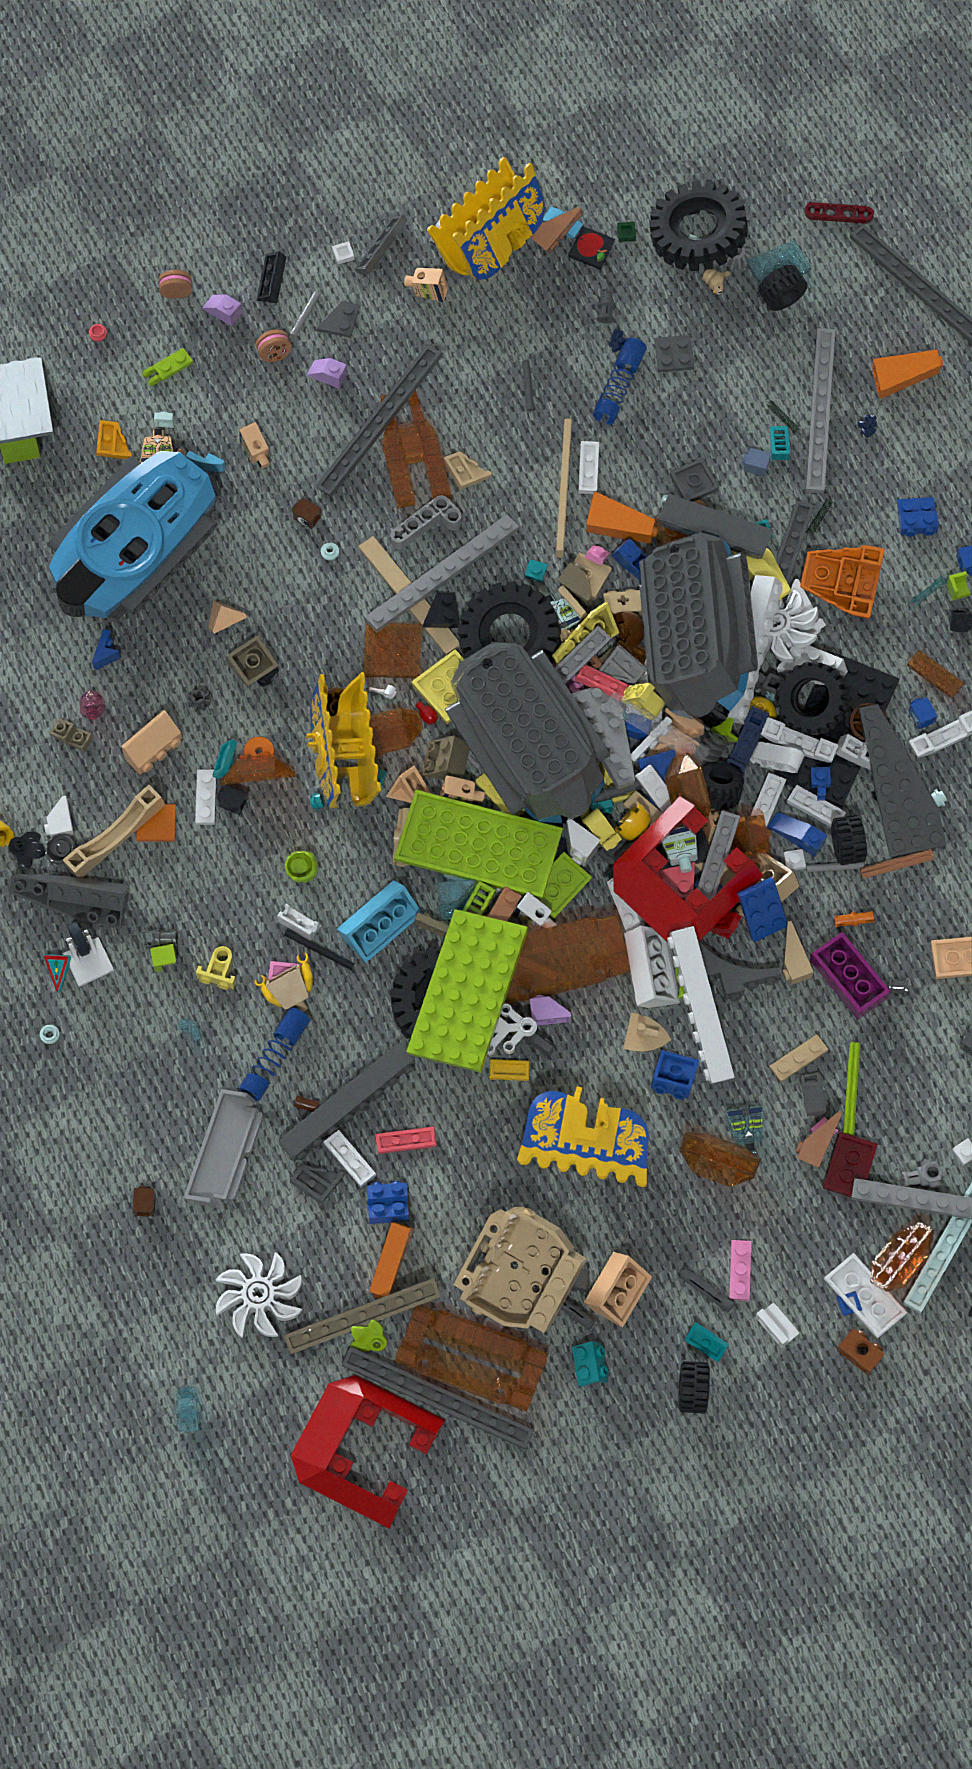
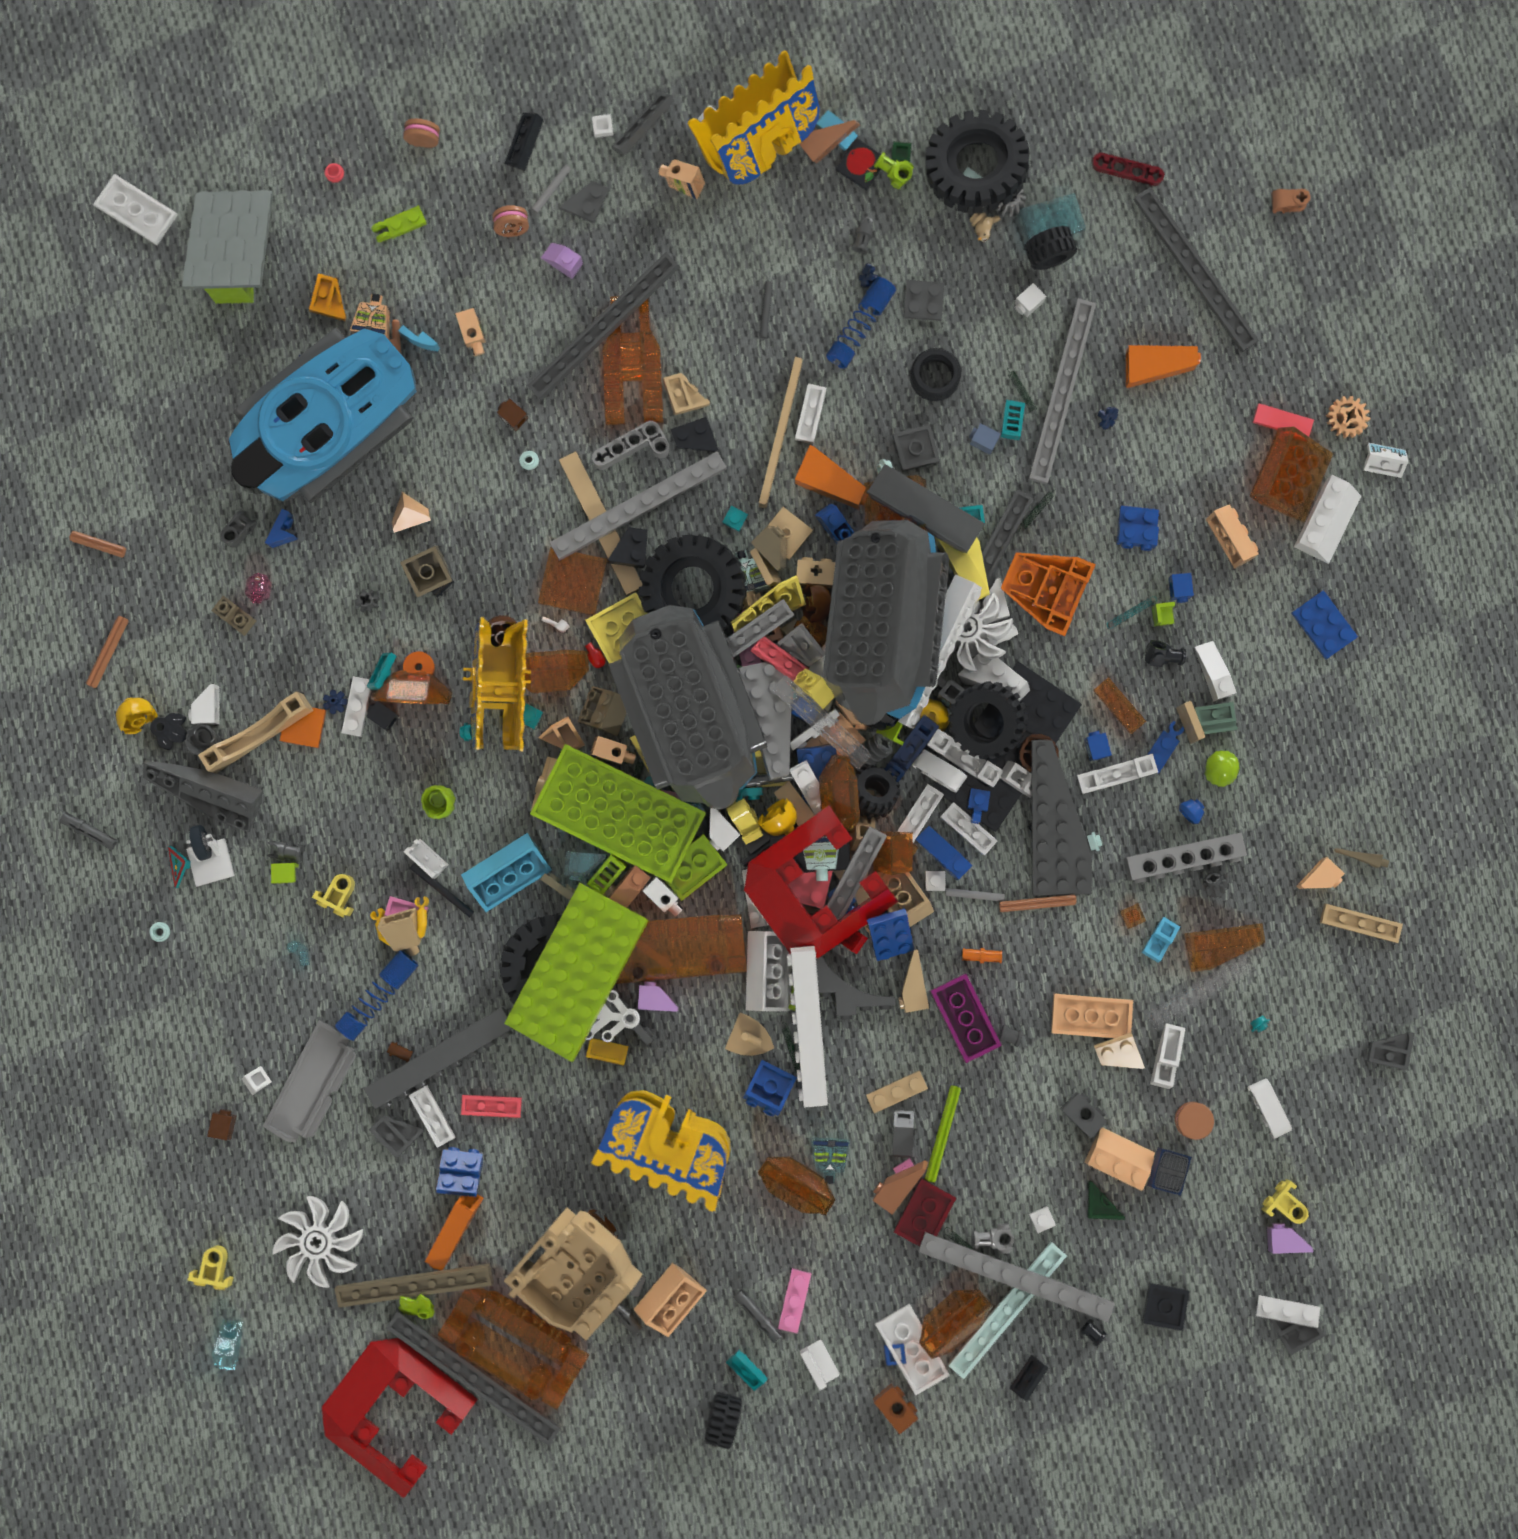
camera: 10 degrees right, 15 degrees up
(64, 654) = (238, 528): none -> dark grey piece
(152, 743) = (310, 642): light nougat slope -> none
(158, 1340) = (212, 1271): none -> light yellow pin
(164, 419) = (384, 283): light aqua plate -> none
(168, 1156) = (256, 1080): none -> white slope
(183, 796) = (335, 702): none -> dark blue plant
(223, 308) = (467, 168): lavender slope -> none
(483, 505) = (695, 436): none -> black wing
(590, 1363) = (629, 1370): teal bracket -> none
(597, 555) = (800, 513): bright pink plate -> none
(622, 246) = (892, 169): none -> lime connector
(686, 1029) = (788, 1046): none -> dark green piece
(693, 429) = (944, 357): none -> black tyre
(772, 337) = (1029, 300): none -> white brick
(849, 840) = (993, 875): black tyre -> none

